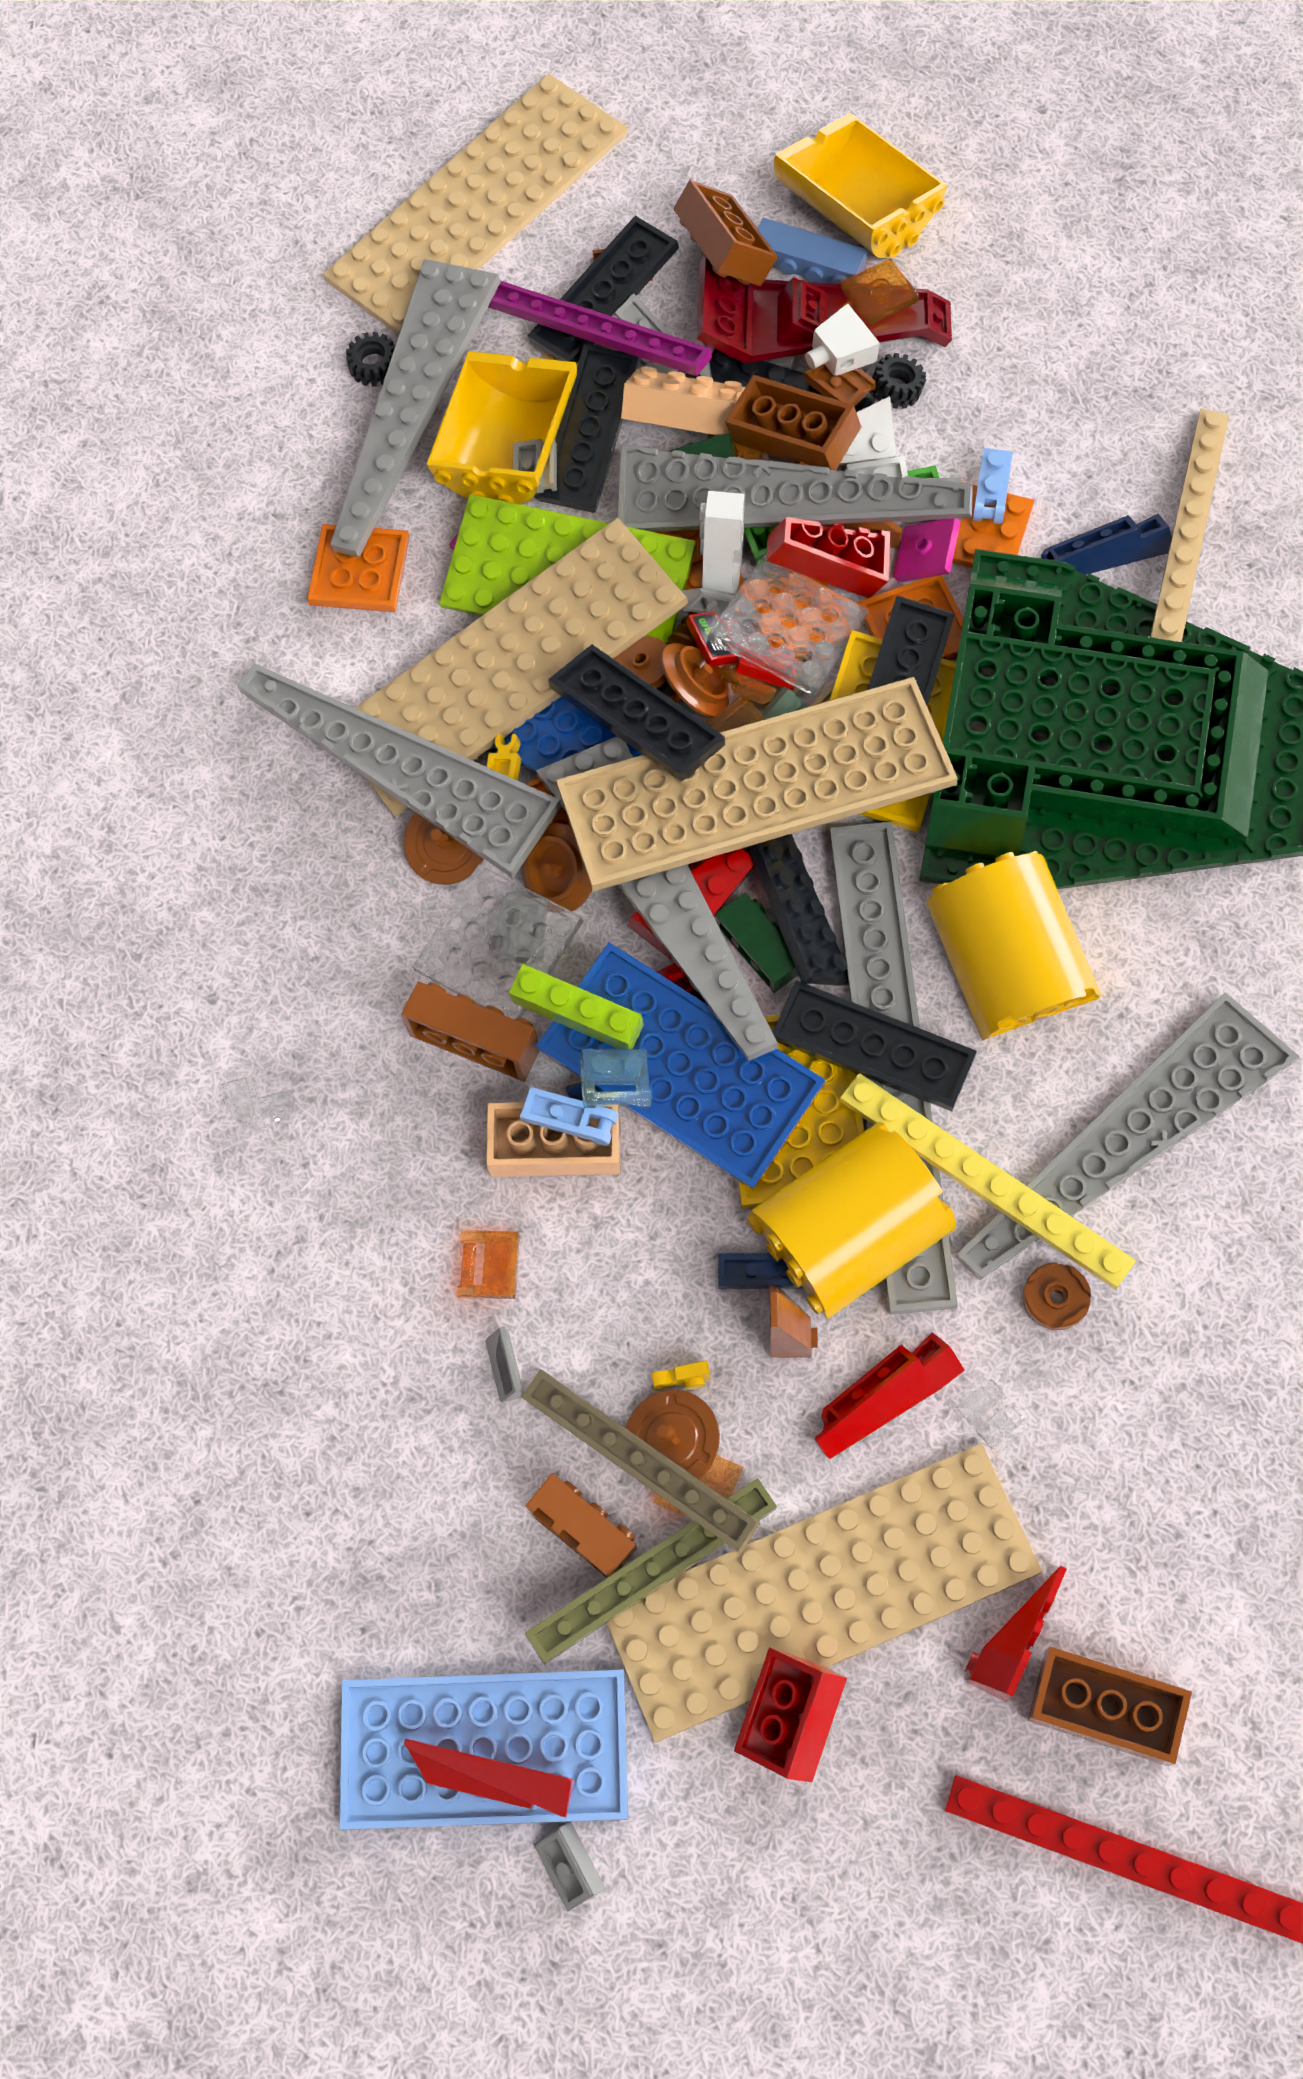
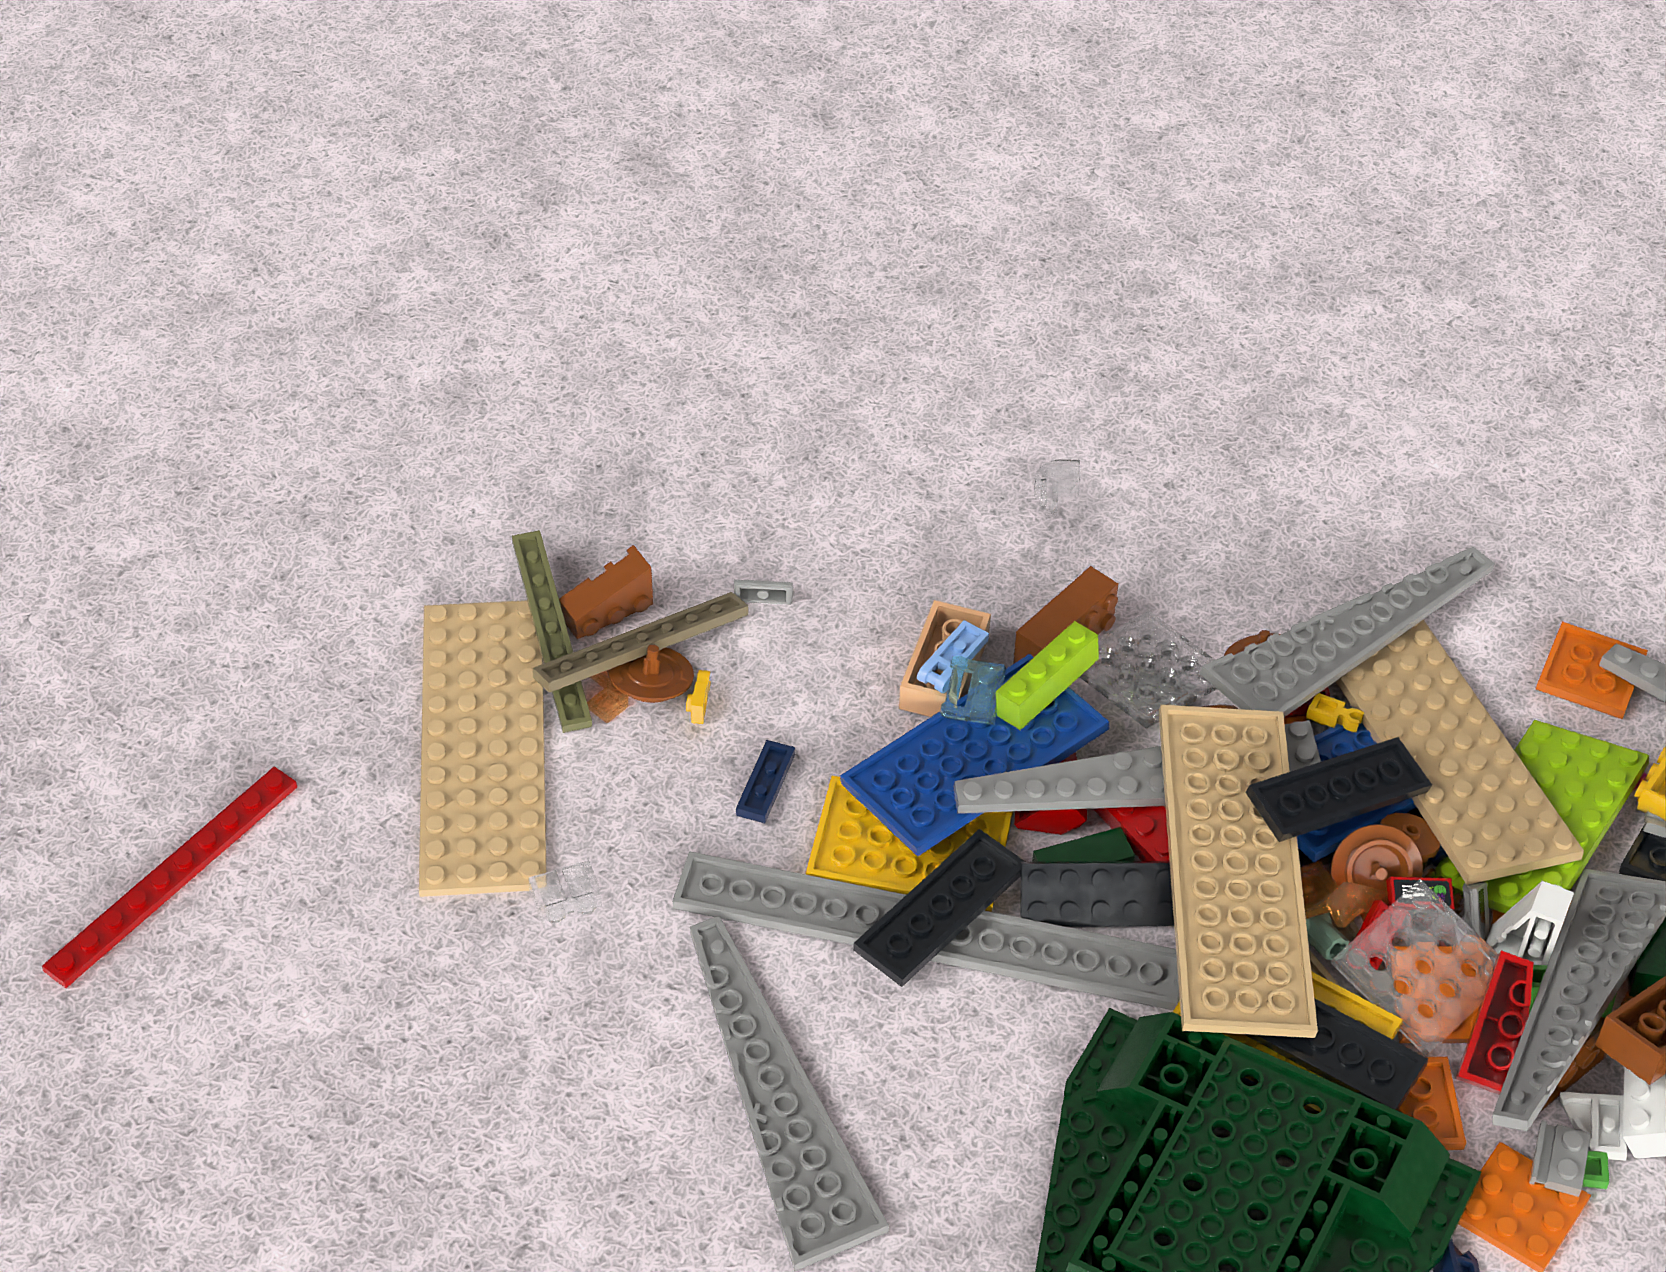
camera: 100 degrees right, 20 degrees down
(492, 1778) = (450, 496): red wedge -> none
(499, 1264) = (853, 601): clear orange plate -> none
(532, 1720) = (470, 508): light blue plate -> none
(569, 1866) = (365, 539): light grey slope -> none
(789, 1327) = (709, 755): wedge -> none
(790, 1715) = (394, 684): red slope -> none
(854, 1219) = (779, 834): yellow cylinder -> none
(887, 1392) = (622, 833): red wedge -> none
(926, 549) = (1497, 1140): dark pink plate -> none
(990, 1182) = (771, 957): light yellow plate -> none
(993, 485) = (1564, 1221): light blue plate -> none
(1006, 1655) = (364, 838): red wedge -> none
(1011, 943) = (1004, 1059): yellow cylinder -> none
(1065, 1281) = (648, 969): dark orange plate -> none
(1110, 1706) = (287, 890): dark orange brick -> none

